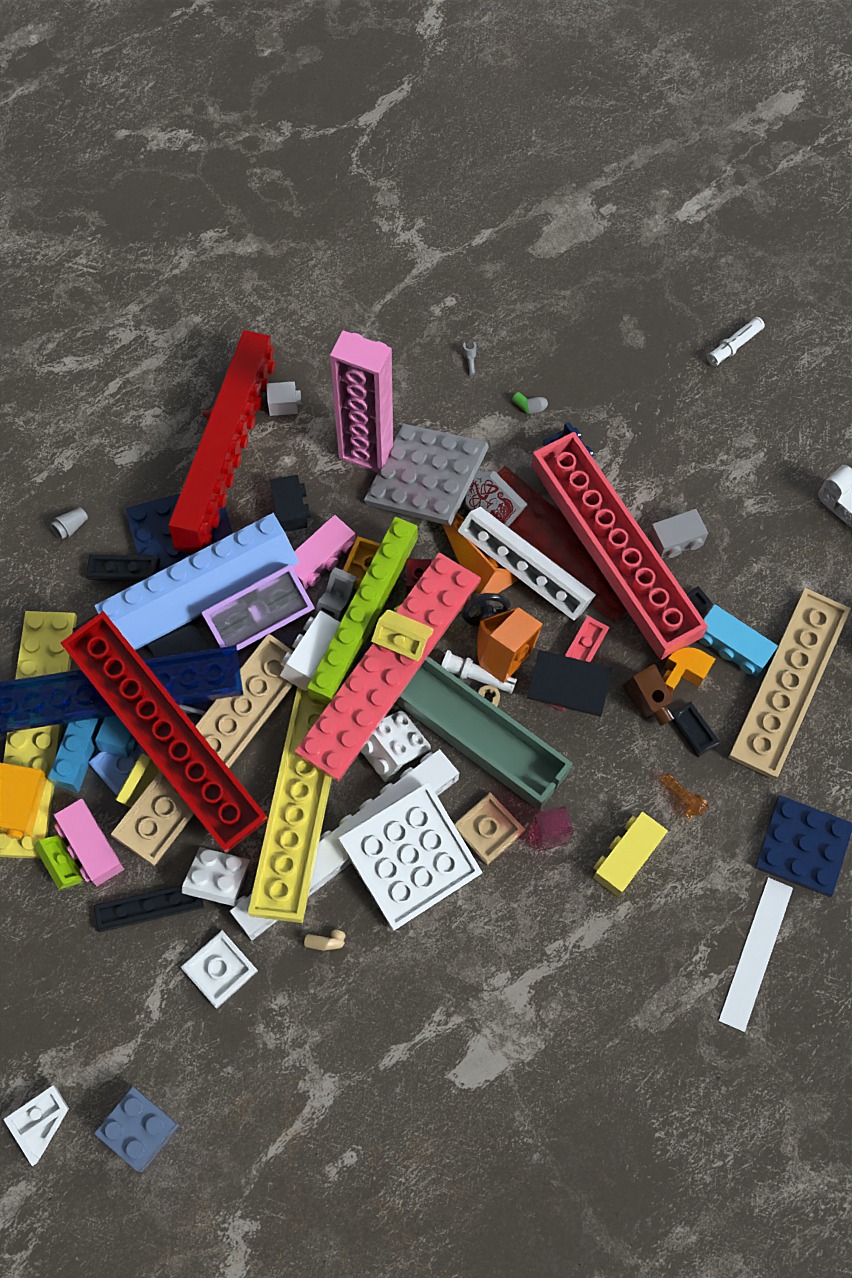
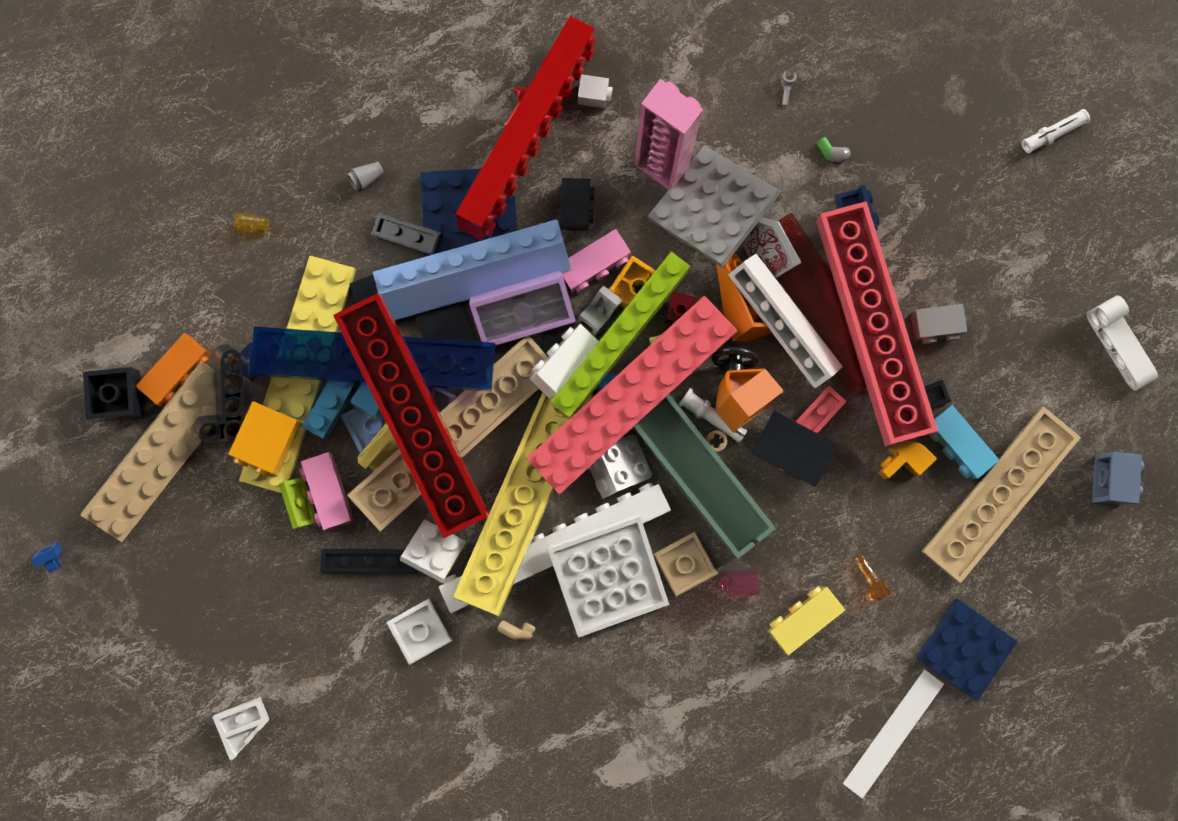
camera: 15 degrees right, 15 degrees up
(137, 1129) = (322, 753): sand blue brick -> none
(401, 634) = (649, 372): light yellow panel -> none
(650, 694) = (865, 468): reddish brown torso -> none
(694, 729) = (898, 517): black tile -> none

